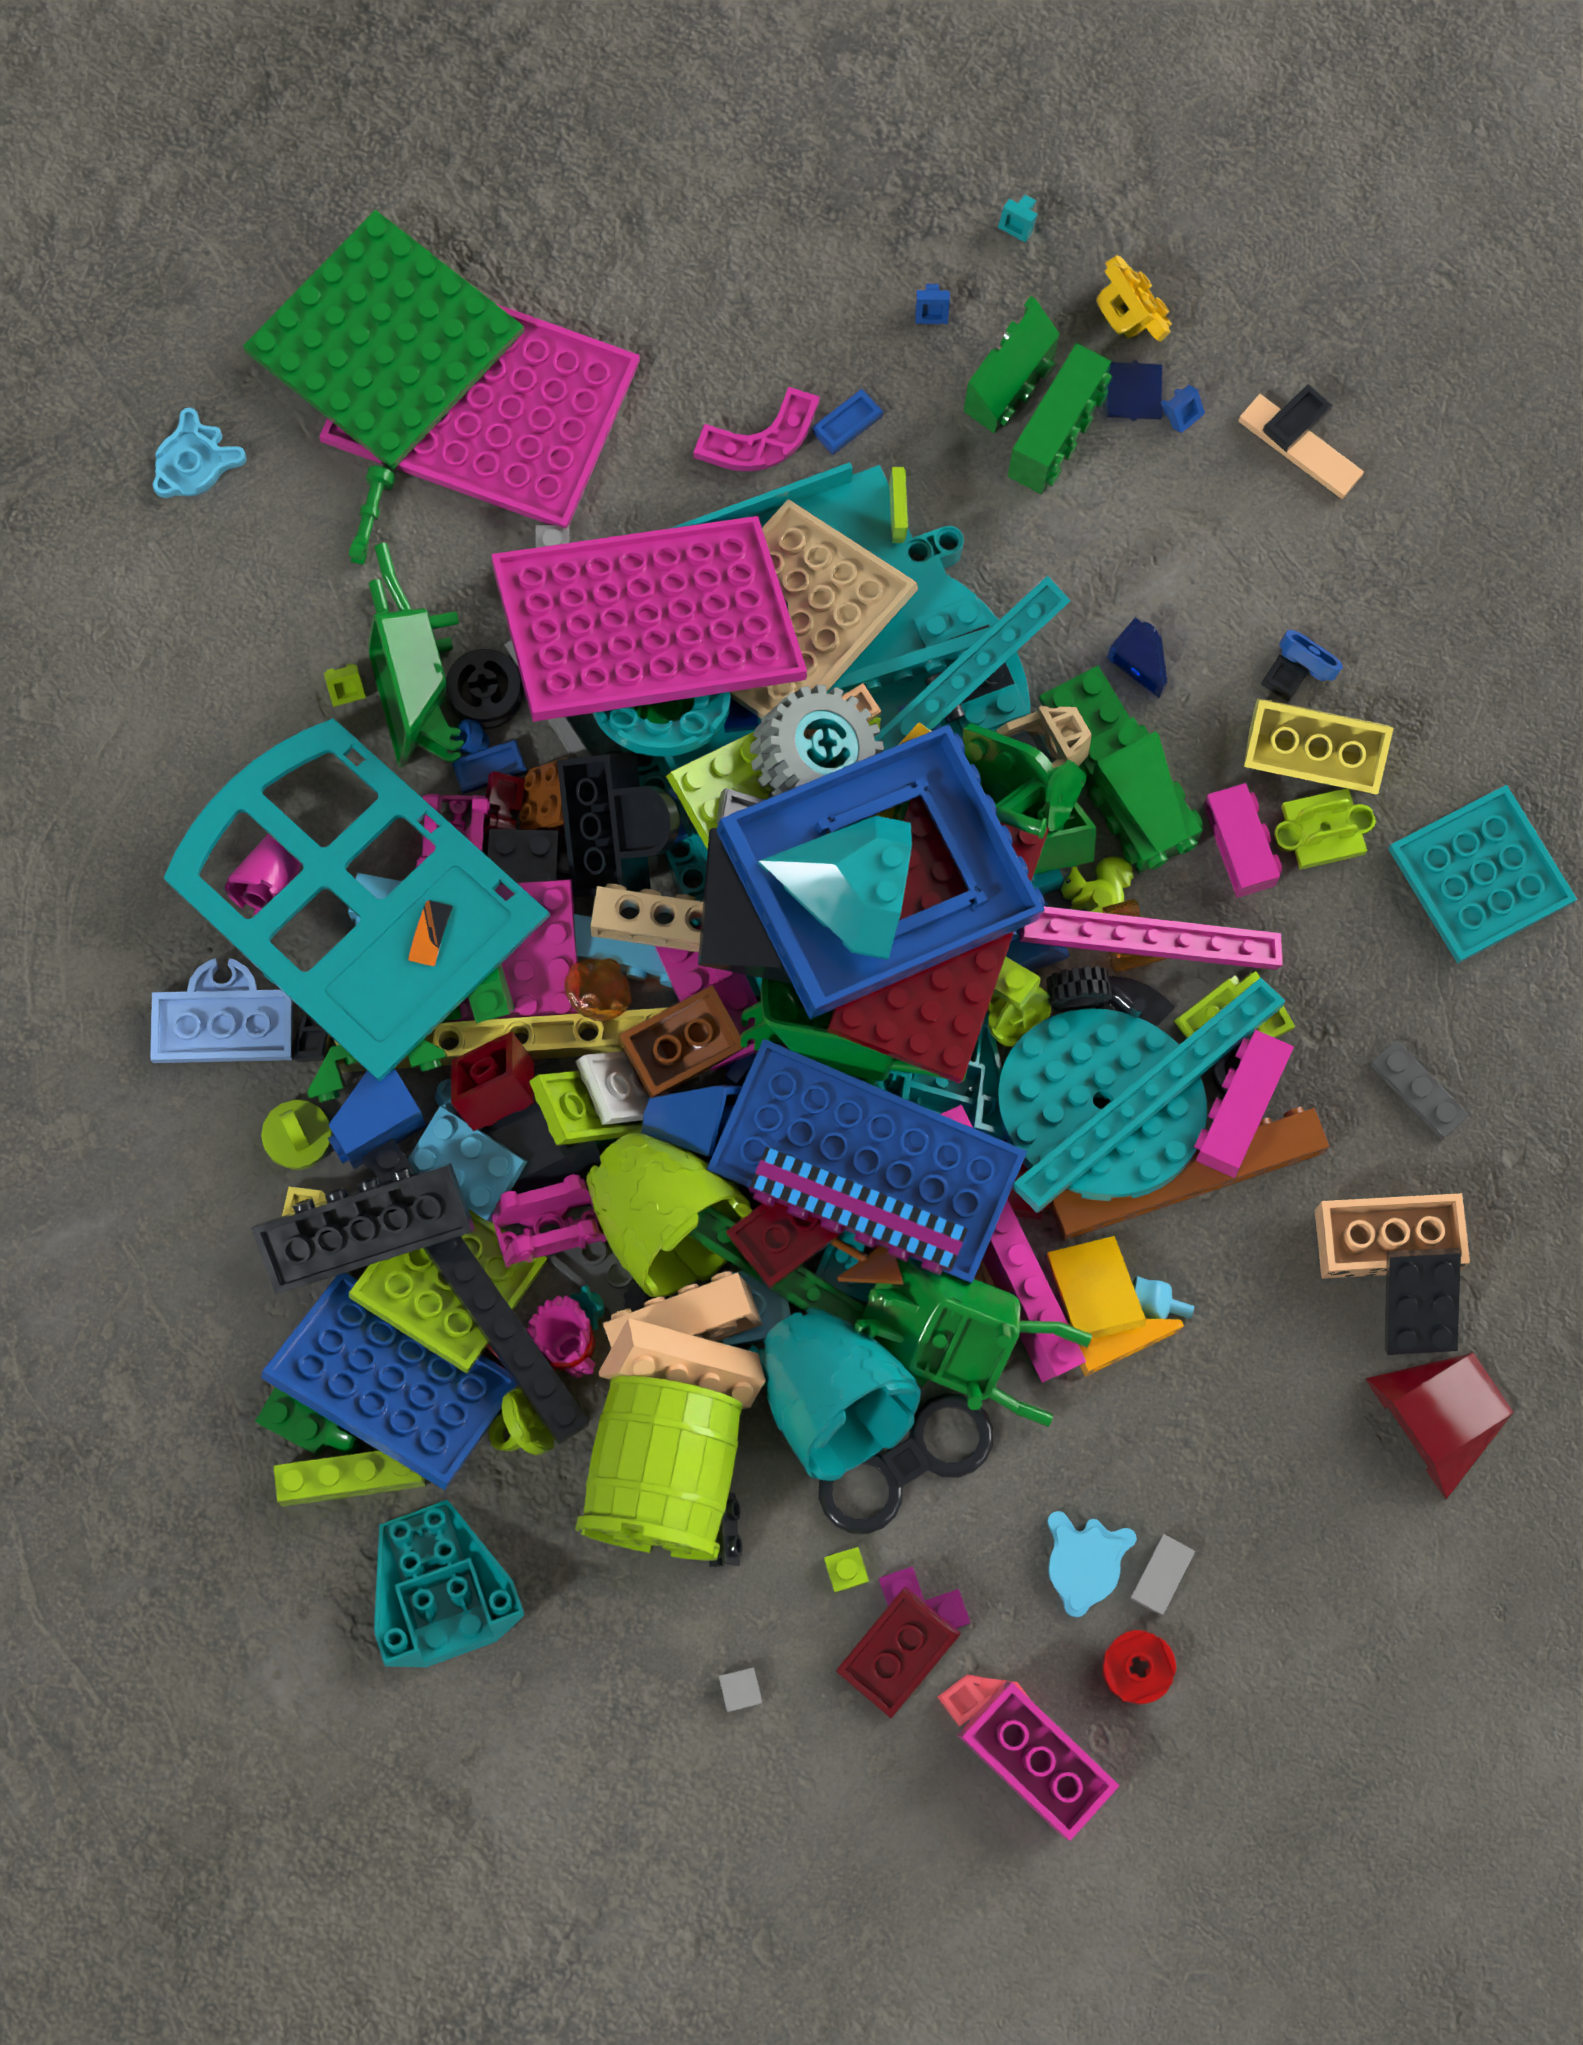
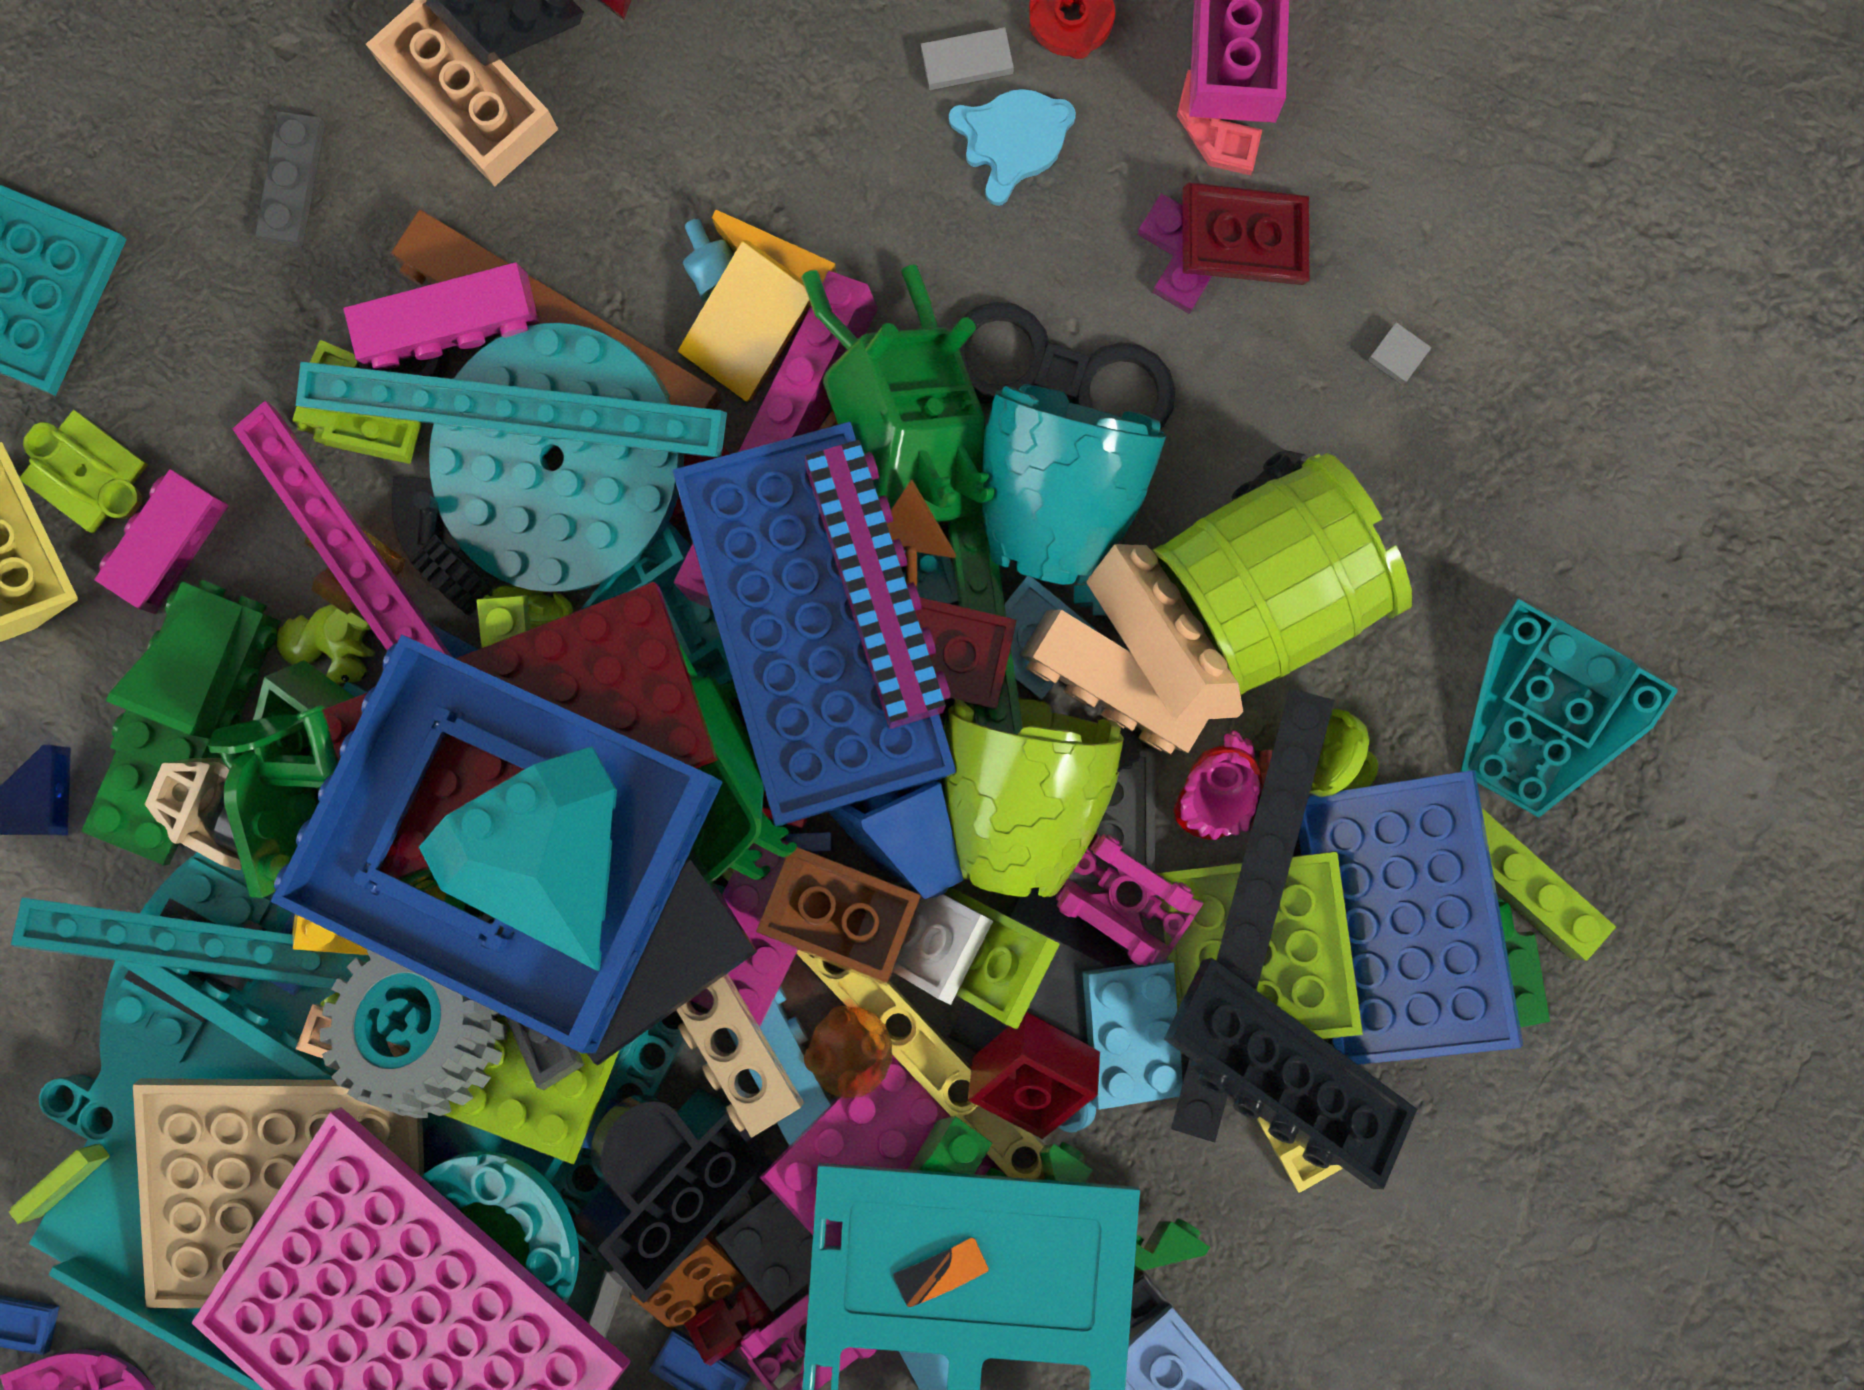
camera: 120 degrees left, 10 degrees up
(296, 1134) = (1242, 1230): lime tile -> none
(374, 1116) = (1168, 1165): blue slope -> none
(591, 1304) = (1166, 791): teal plate -> none
(846, 1570) = (1207, 347): lime plate -> none

